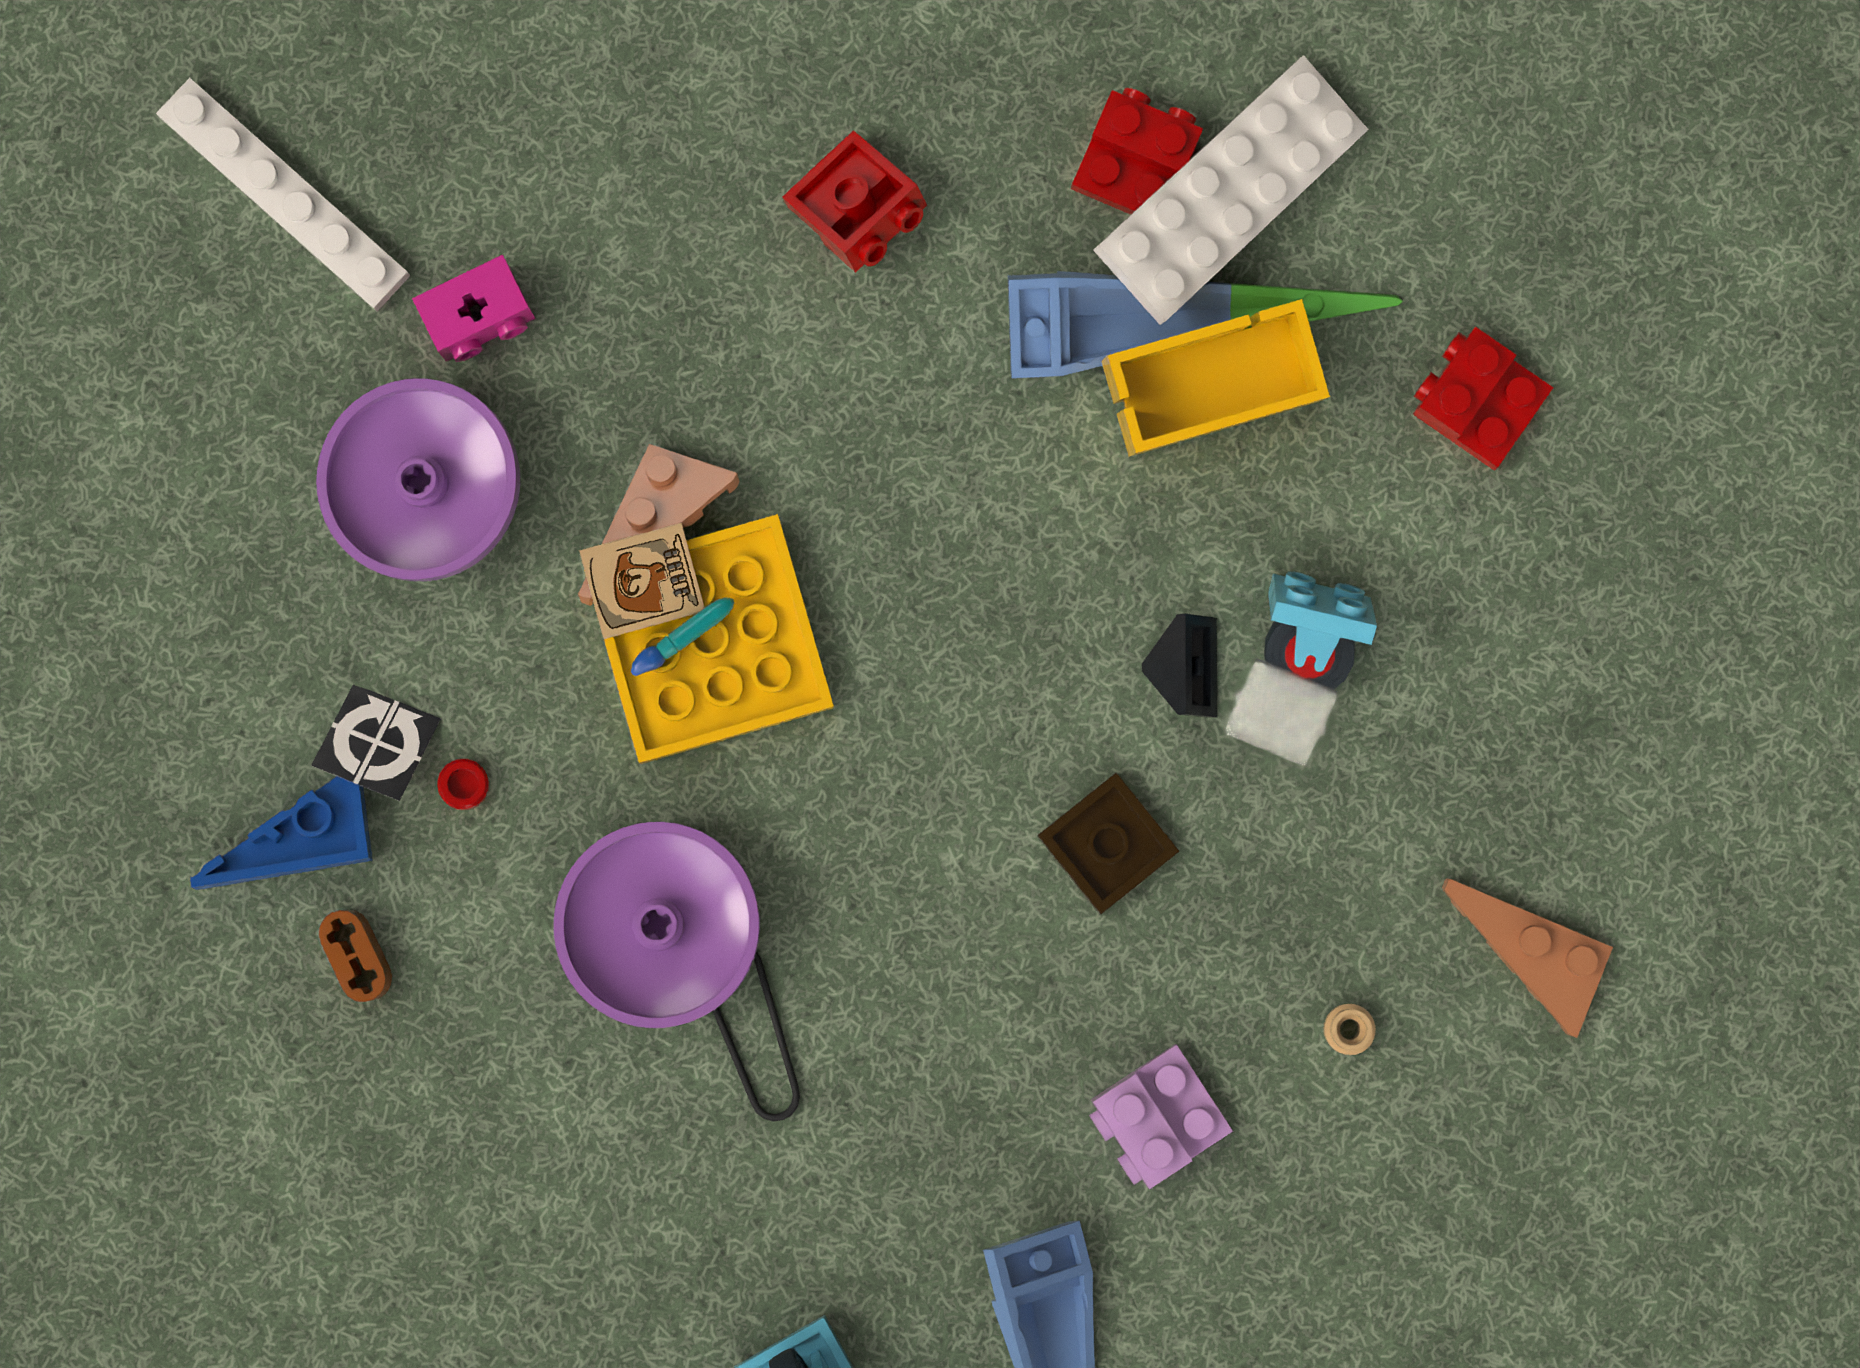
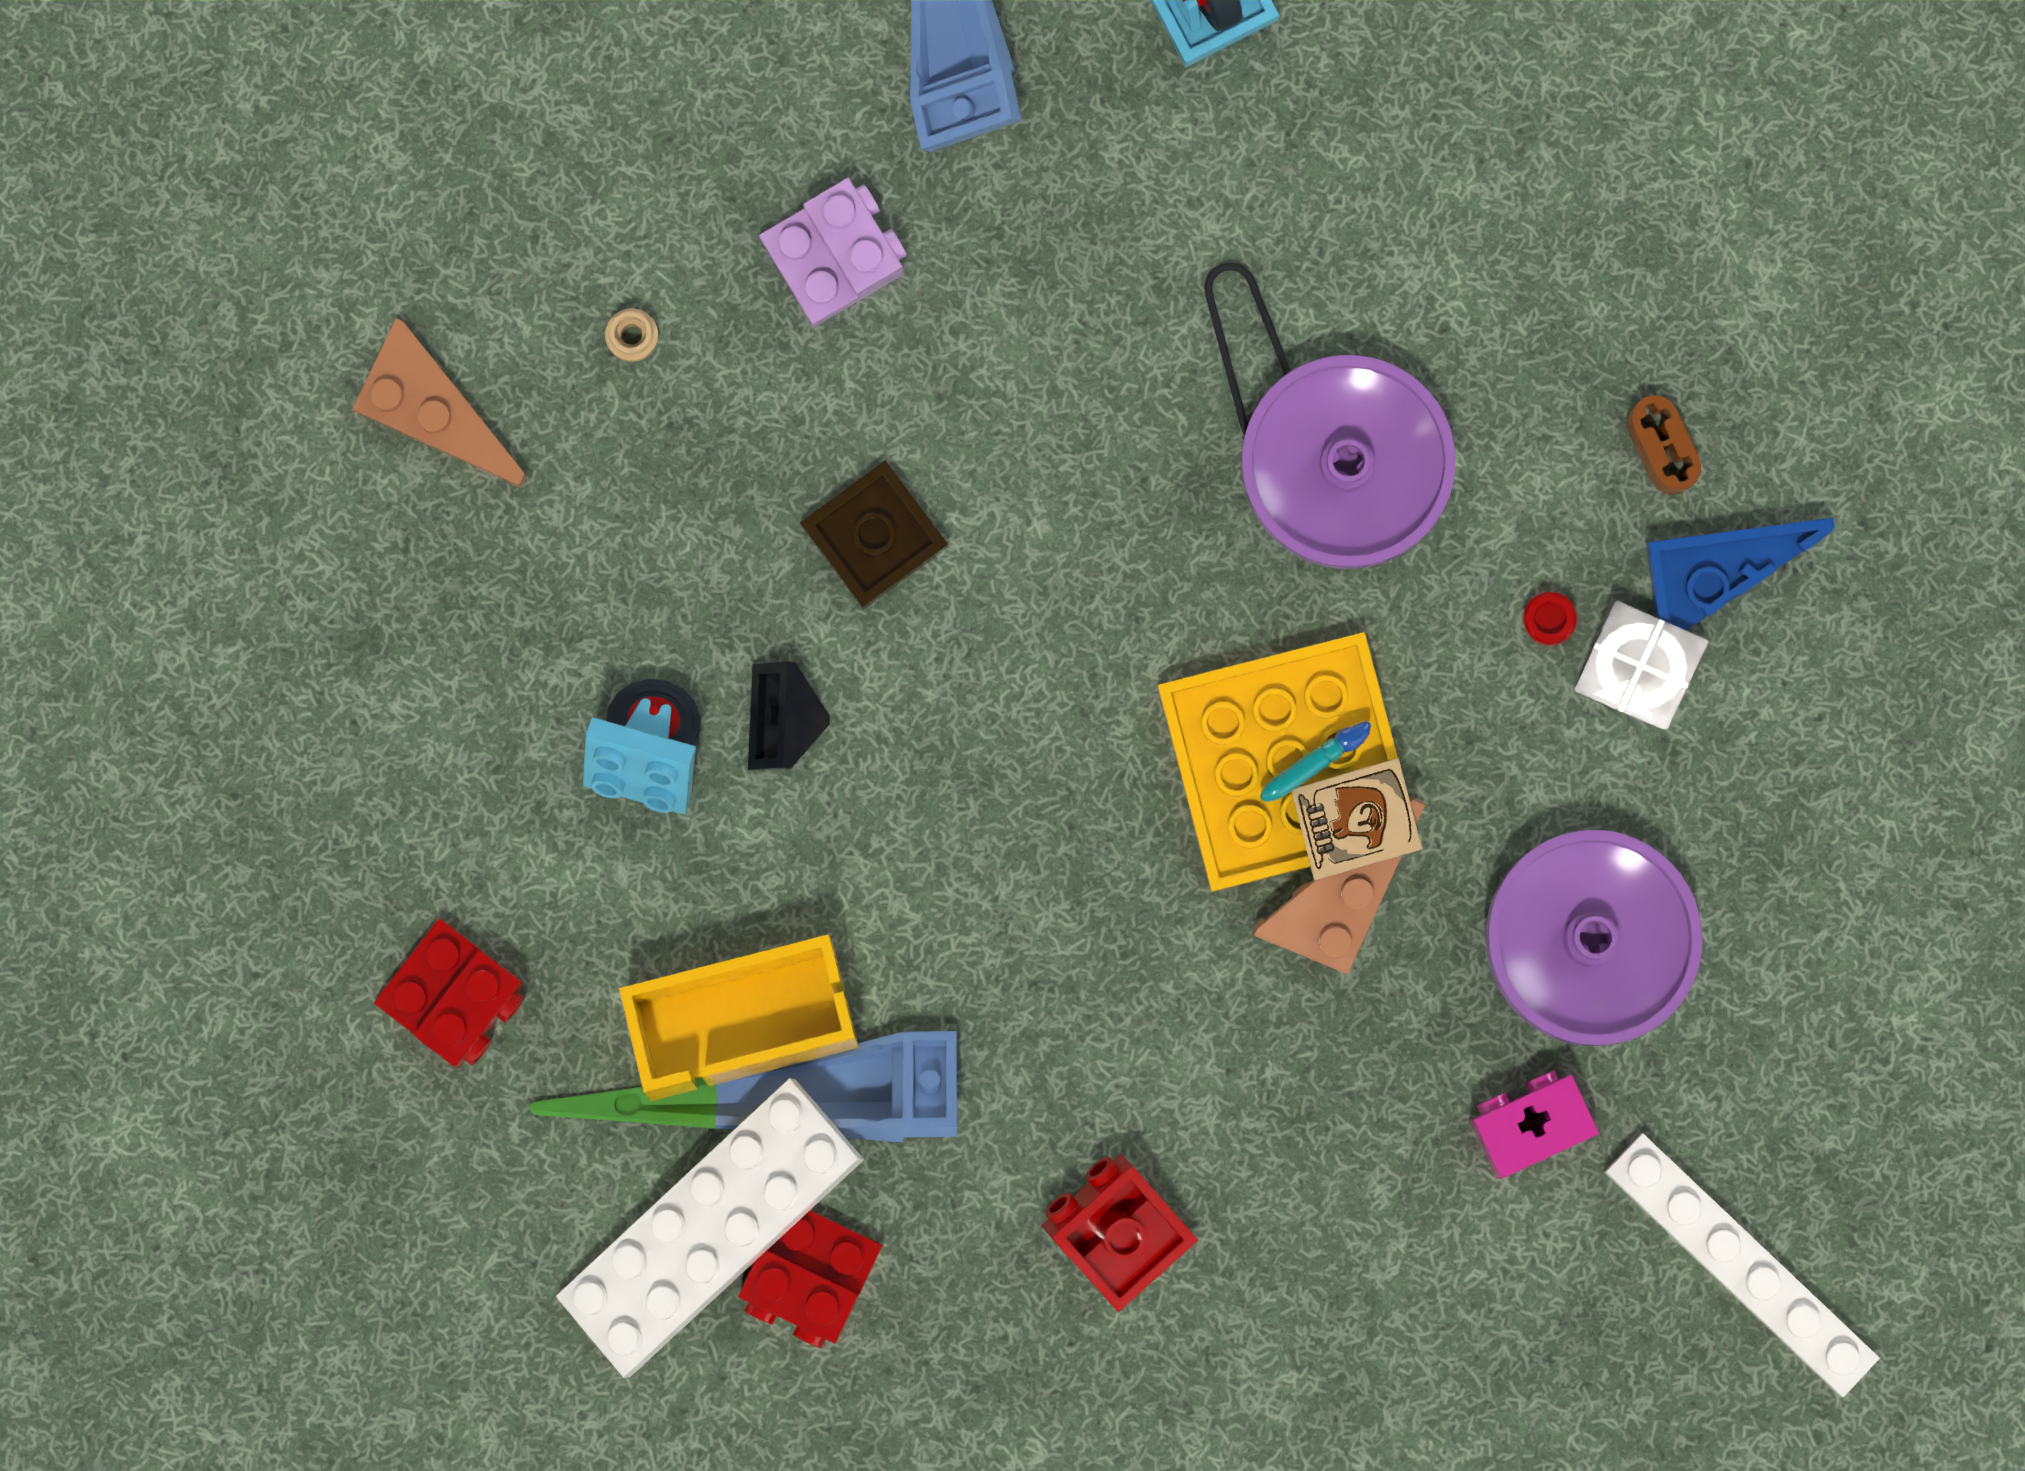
camera: 170 degrees left, 0 degrees up
(1280, 712) = (686, 664): clear piece -> none

